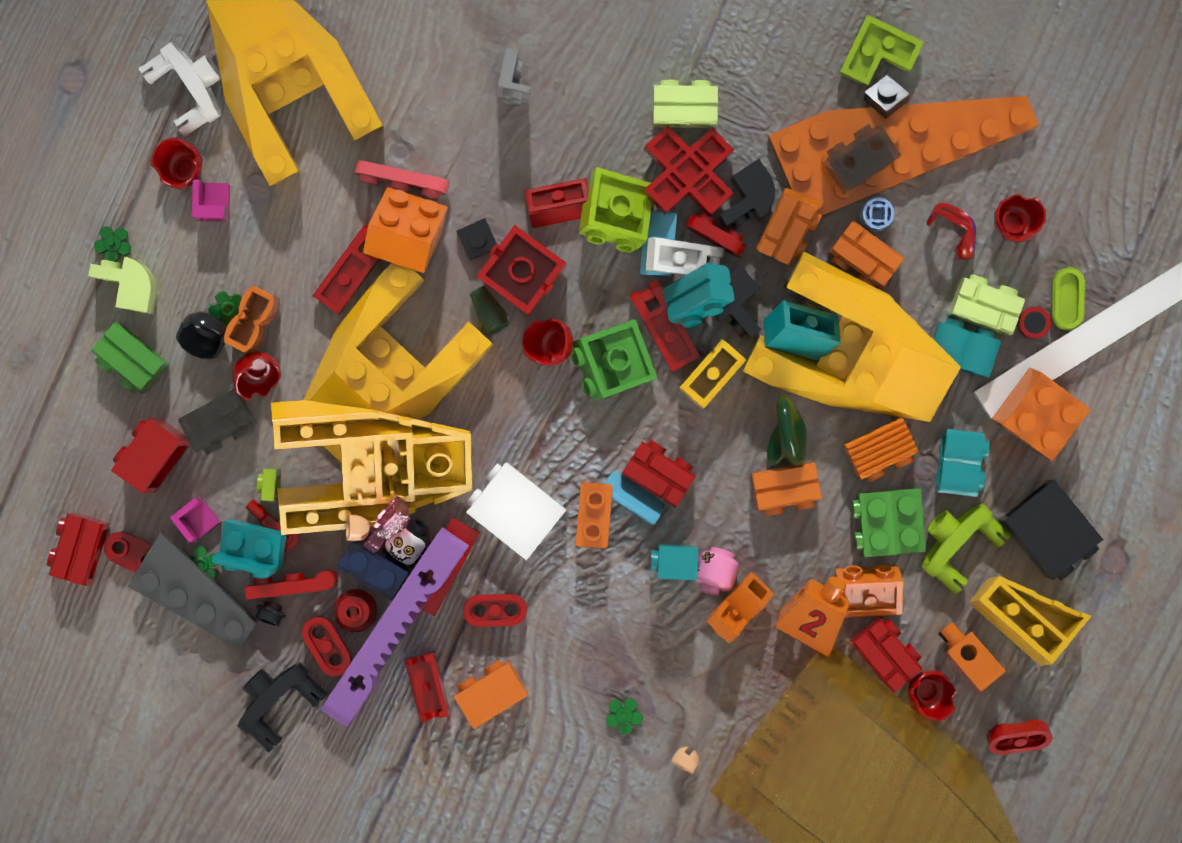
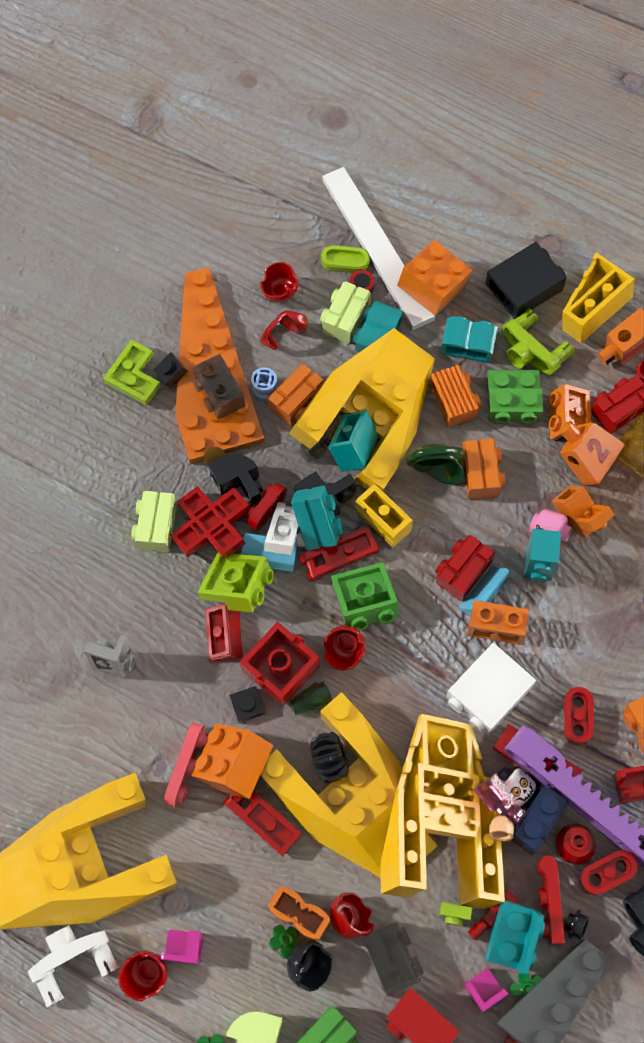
camera: 80 degrees left, 20 degrees down
(420, 336) = (329, 757): none -> black gear
(775, 165) = (213, 454): none -> pearl gold sticker
(788, 227) = (267, 447): orange brick -> none

